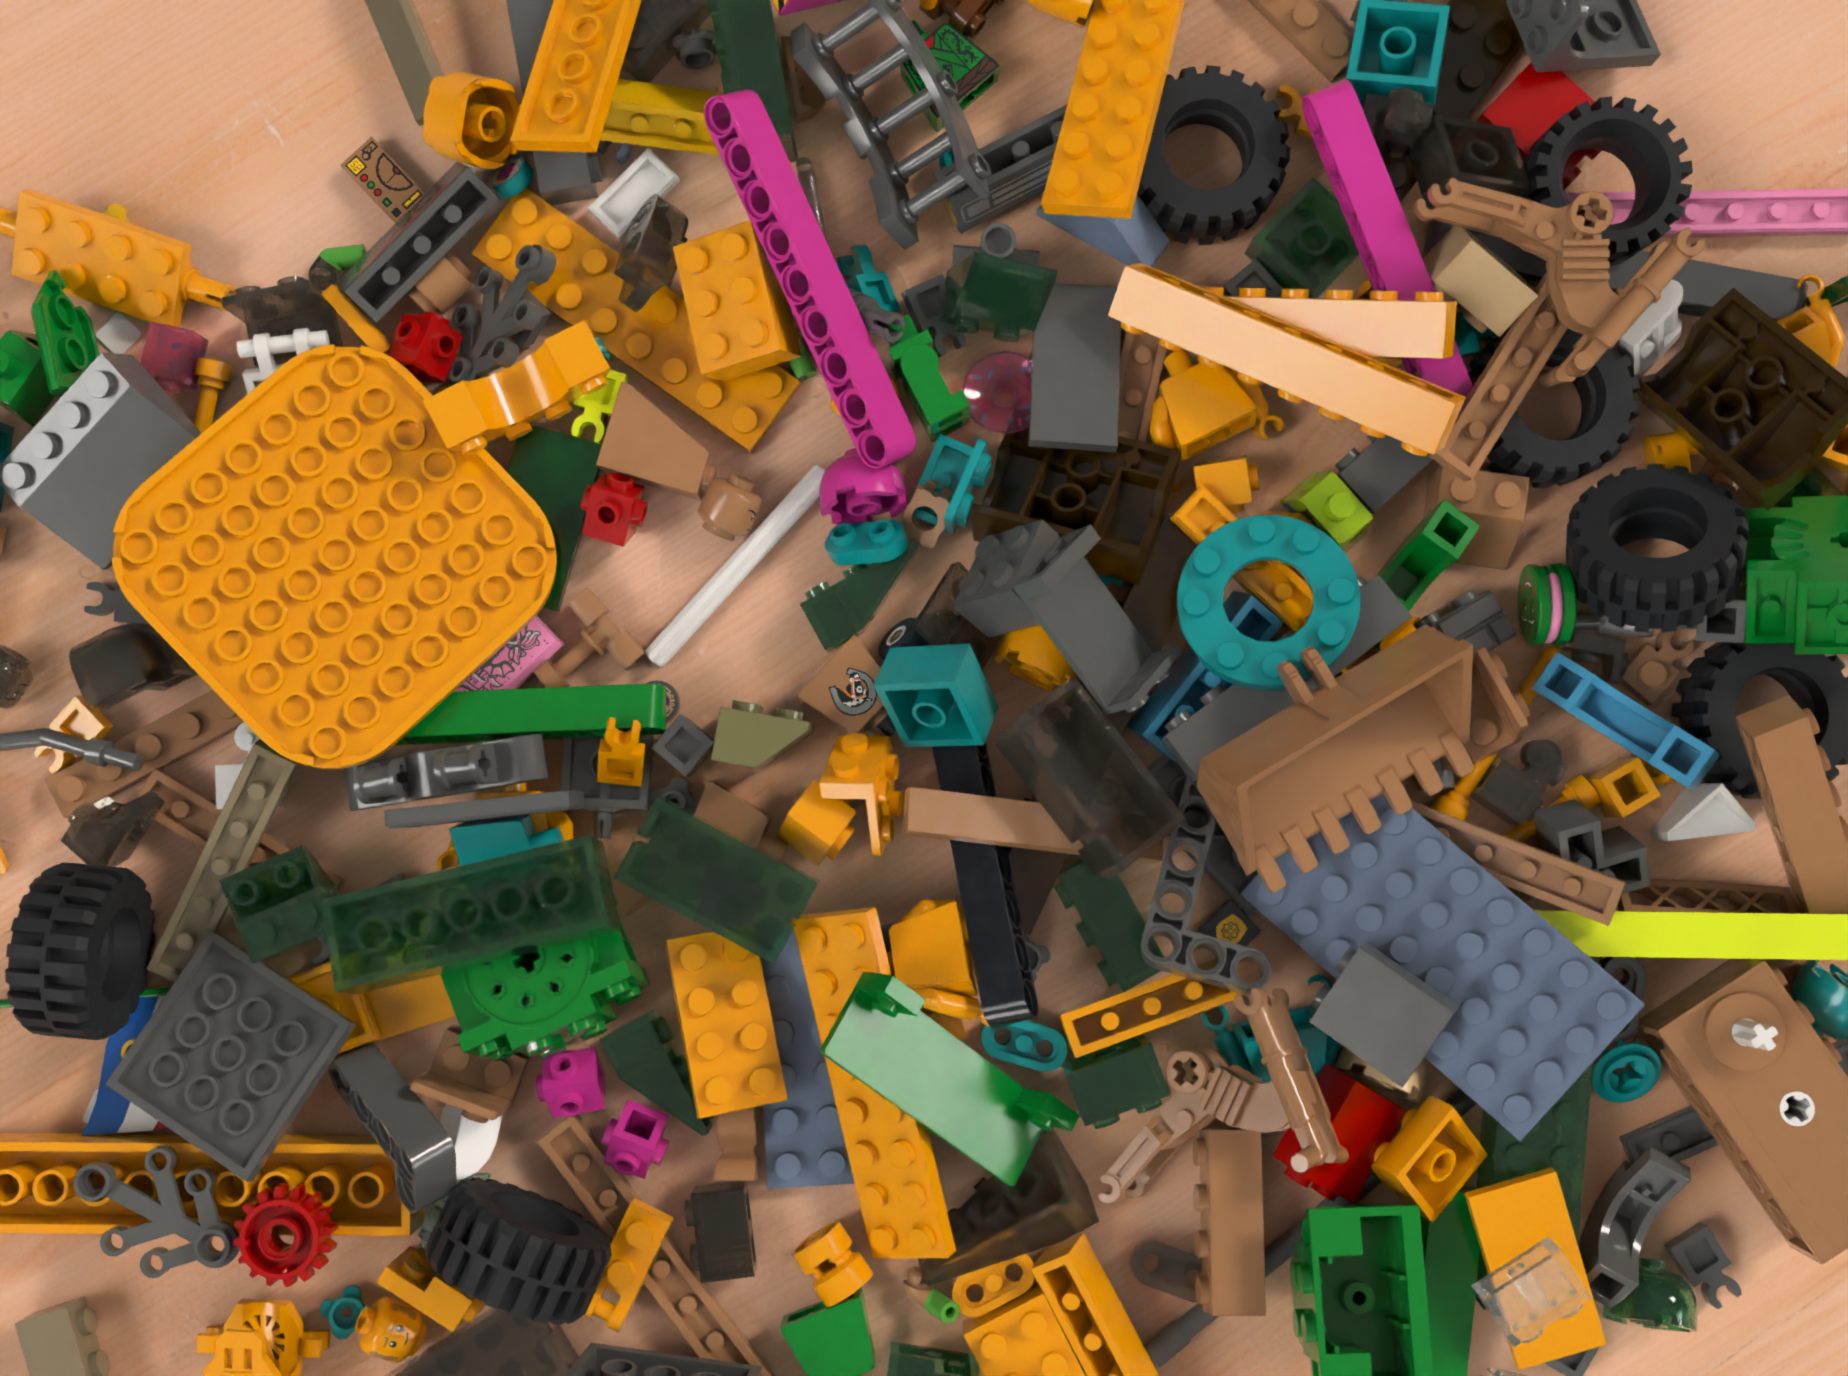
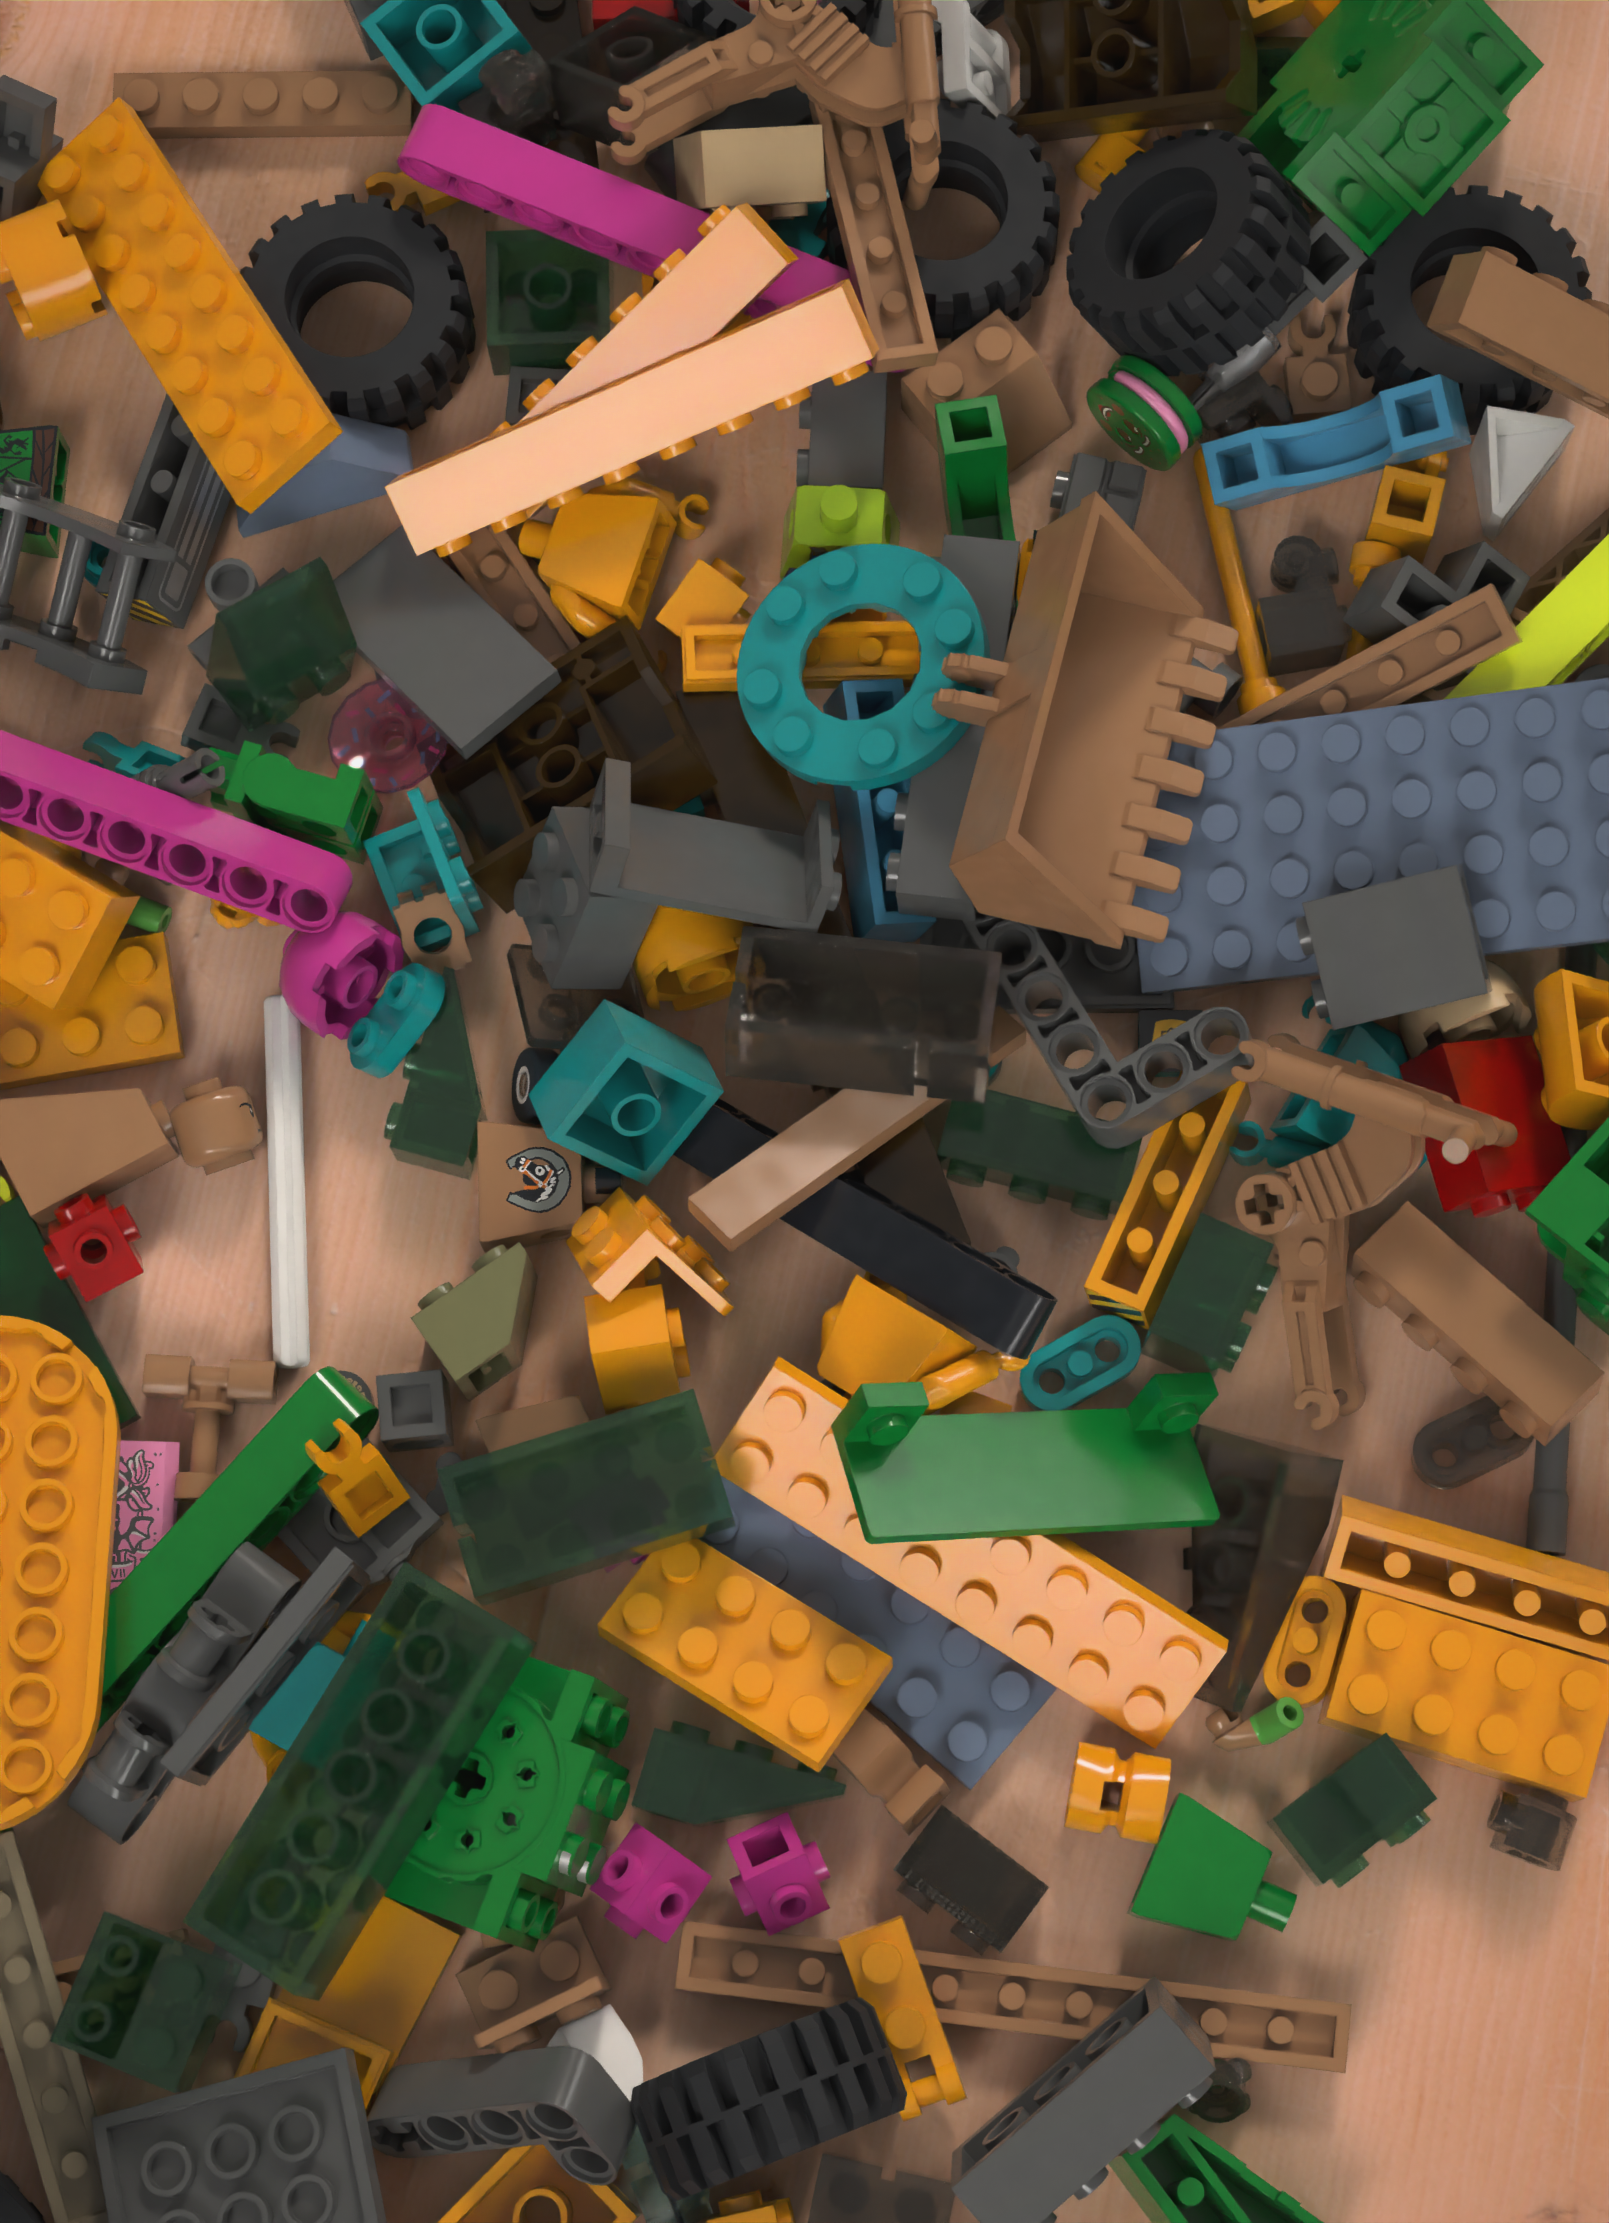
camera: 40 degrees left, 10 degrees down
(1496, 714) = (1202, 554): medium nougat bracket -> none

